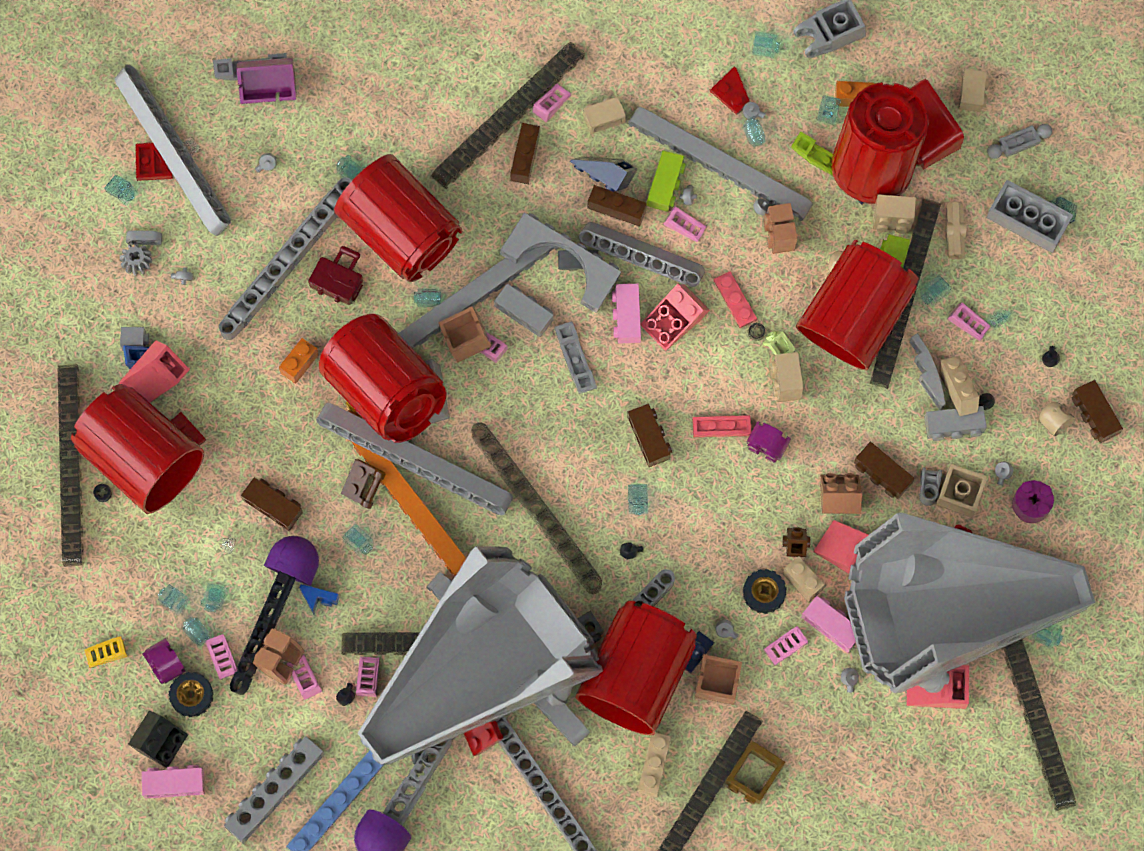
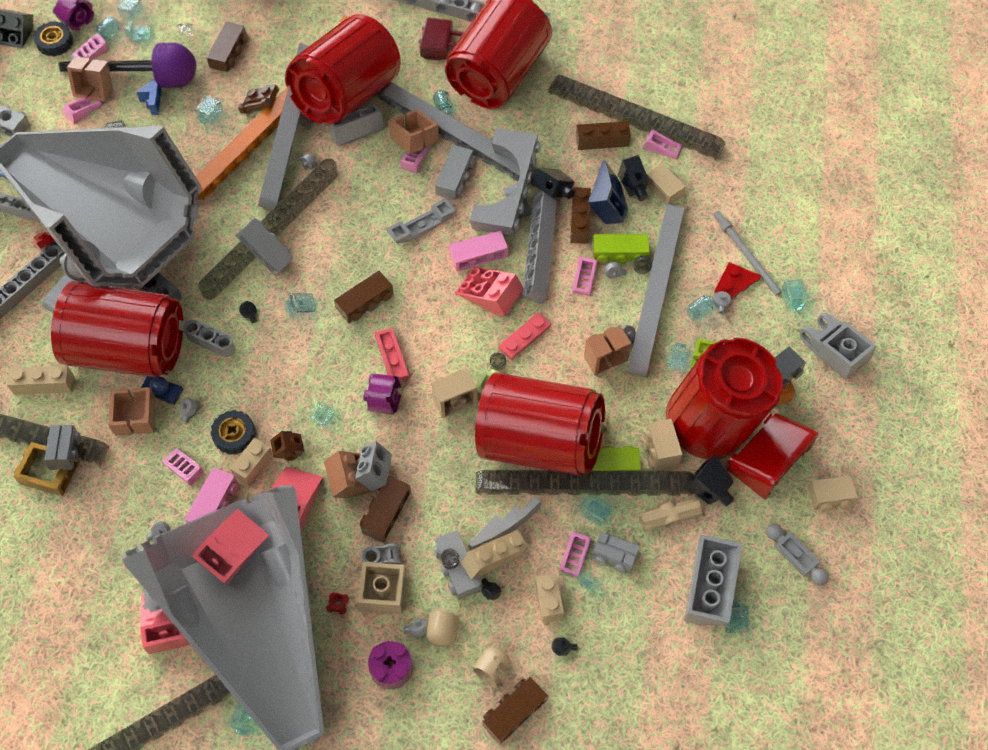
camera: 75 degrees right, 10 degrees down
(458, 452) = (308, 161): none -> light grey piece
(567, 514) = (264, 246): none -> light grey brick
(577, 216) = (560, 184): none -> black torso
(590, 141) = (634, 177): none -> black torso
(668, 76) = (726, 226): none -> light grey bar
(691, 167) = (642, 264): none -> clear smoke tile
(747, 746) = (61, 447): none -> dark grey brick
(766, 505) = (323, 414): none -> clear light blue slope
(800, 169) = (678, 357): none -> clear light blue bracket
(842, 468) = (373, 466): none -> light grey brick
(852, 80) = (790, 365): none -> dark grey brick
(900, 604) = (230, 546): none -> coral slope
(937, 185) = (711, 482): none -> black torso
(954, 430) = (447, 564): none -> clear smoke bush
(978, 287) = (615, 552): none -> light grey brick
(1007, 354) = (549, 598): none -> tan piece
(1012, 450) = (442, 628): none -> tan helmet

